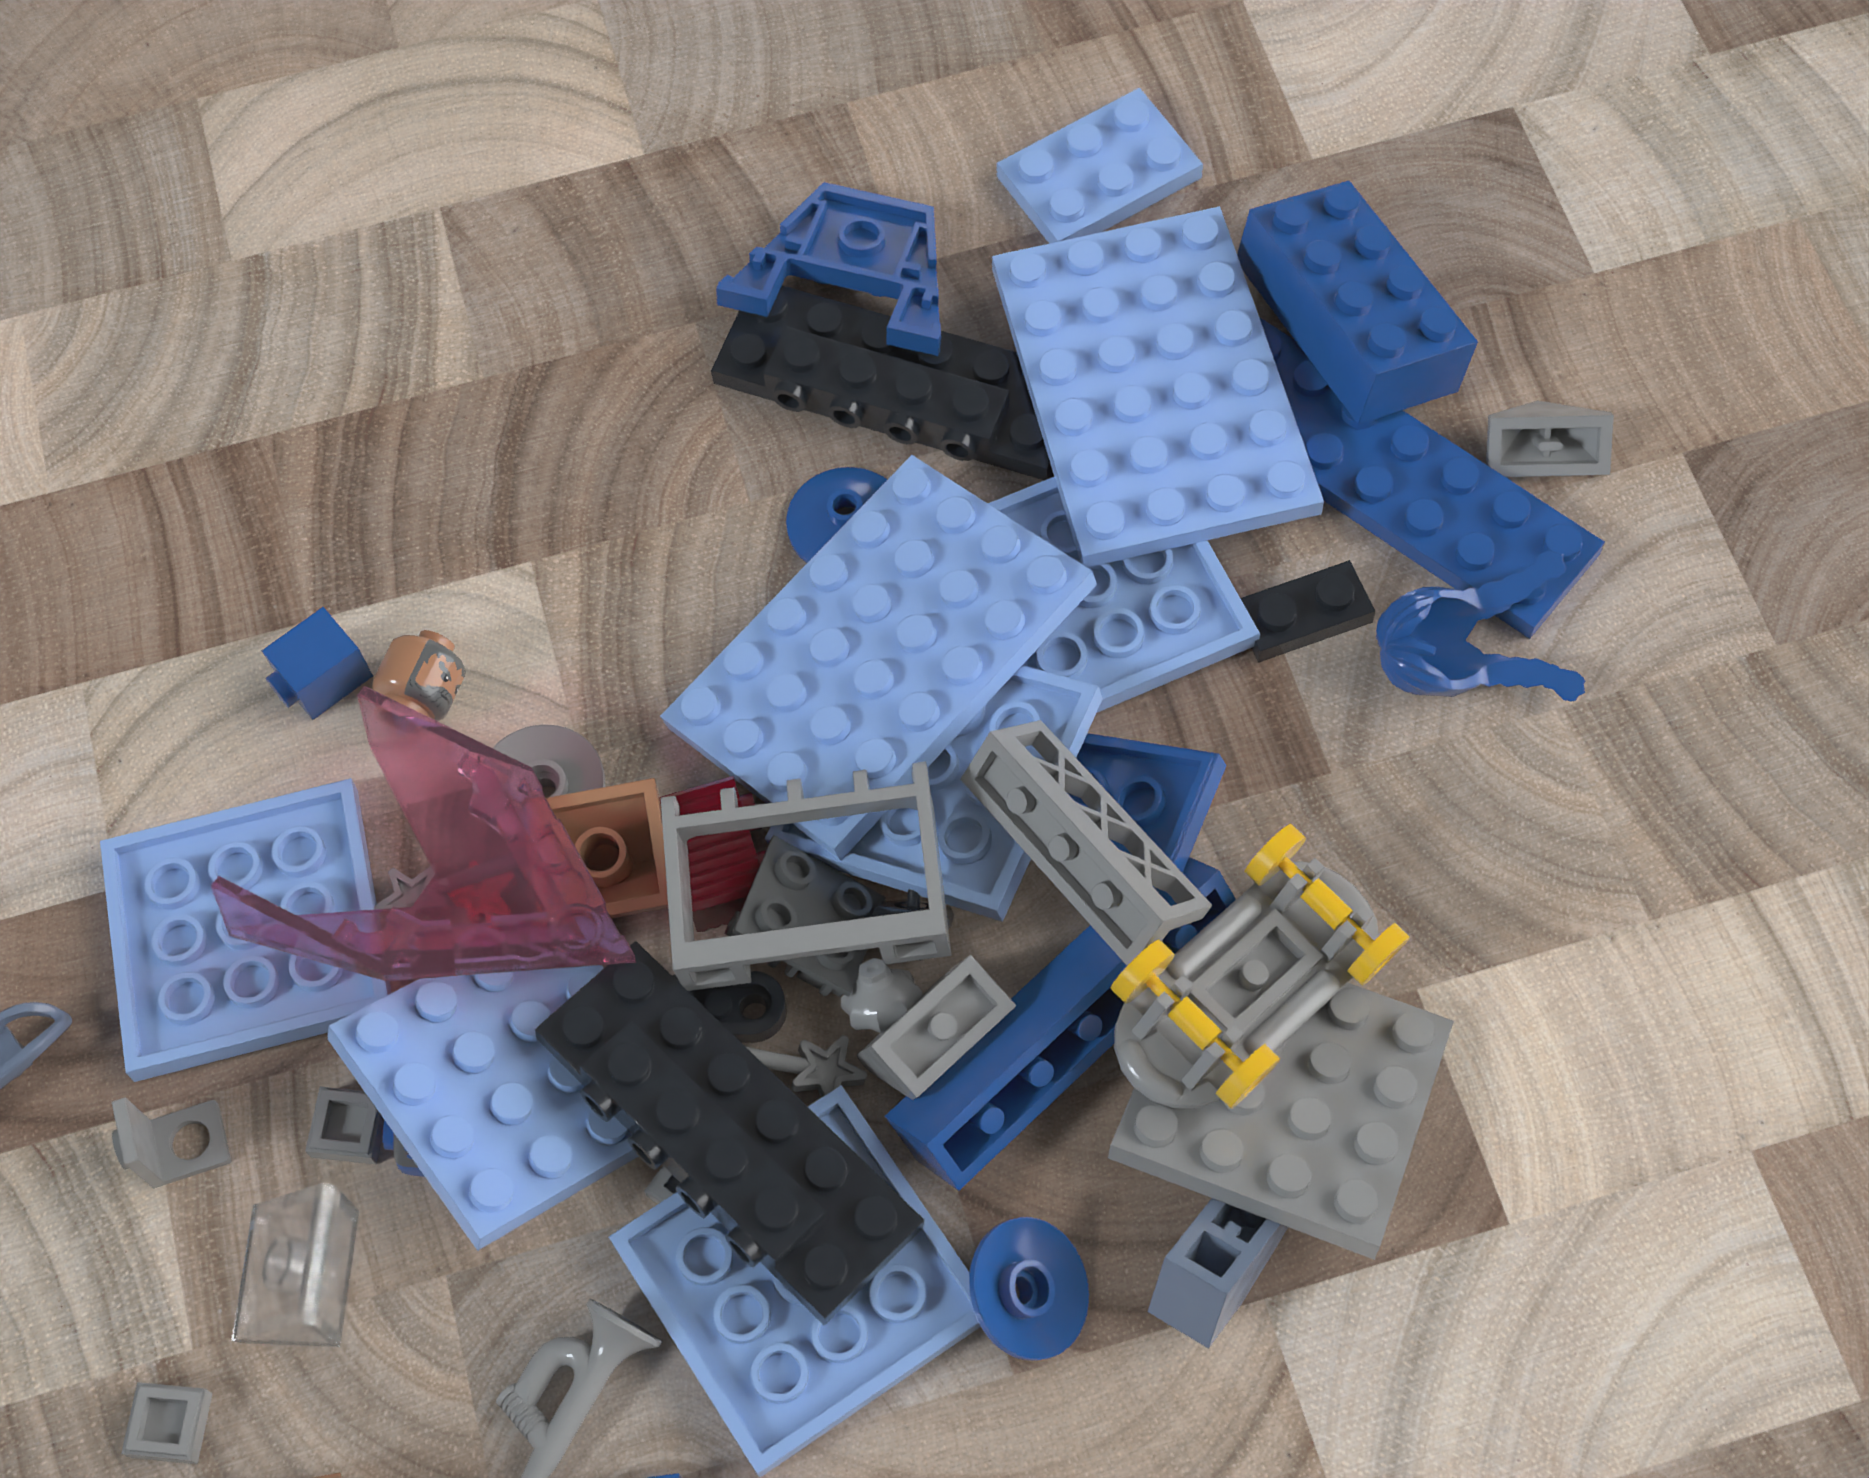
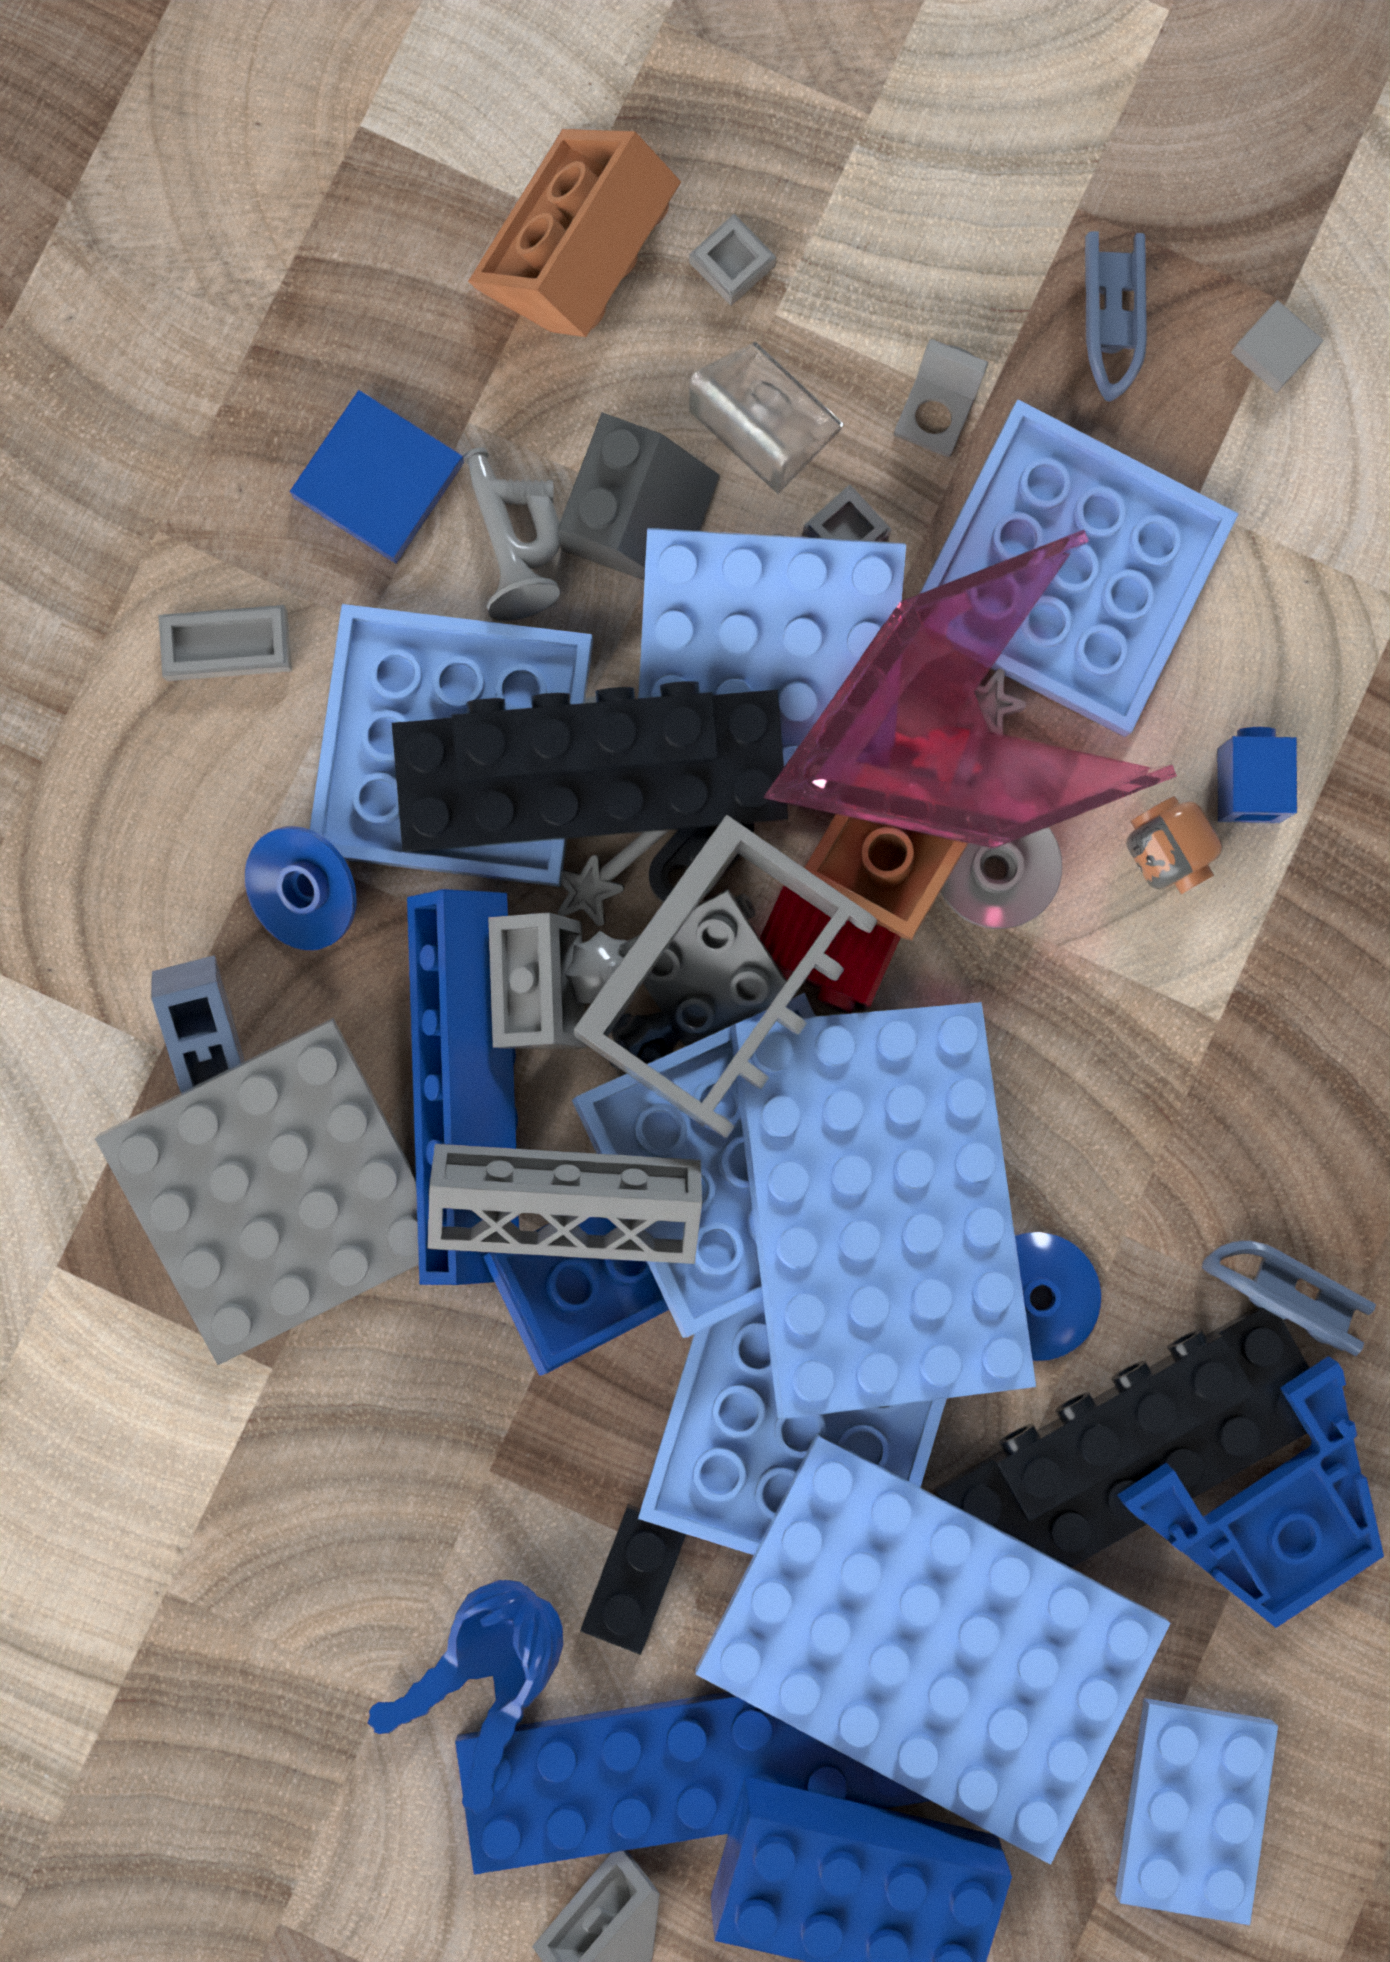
camera: 120 degrees right, 20 degrees up
(460, 1312) = (628, 485): none -> dark grey slope
(703, 374) = (1274, 1290): none -> sand blue piece
(1218, 1008) = (359, 1232): light grey piece -> none

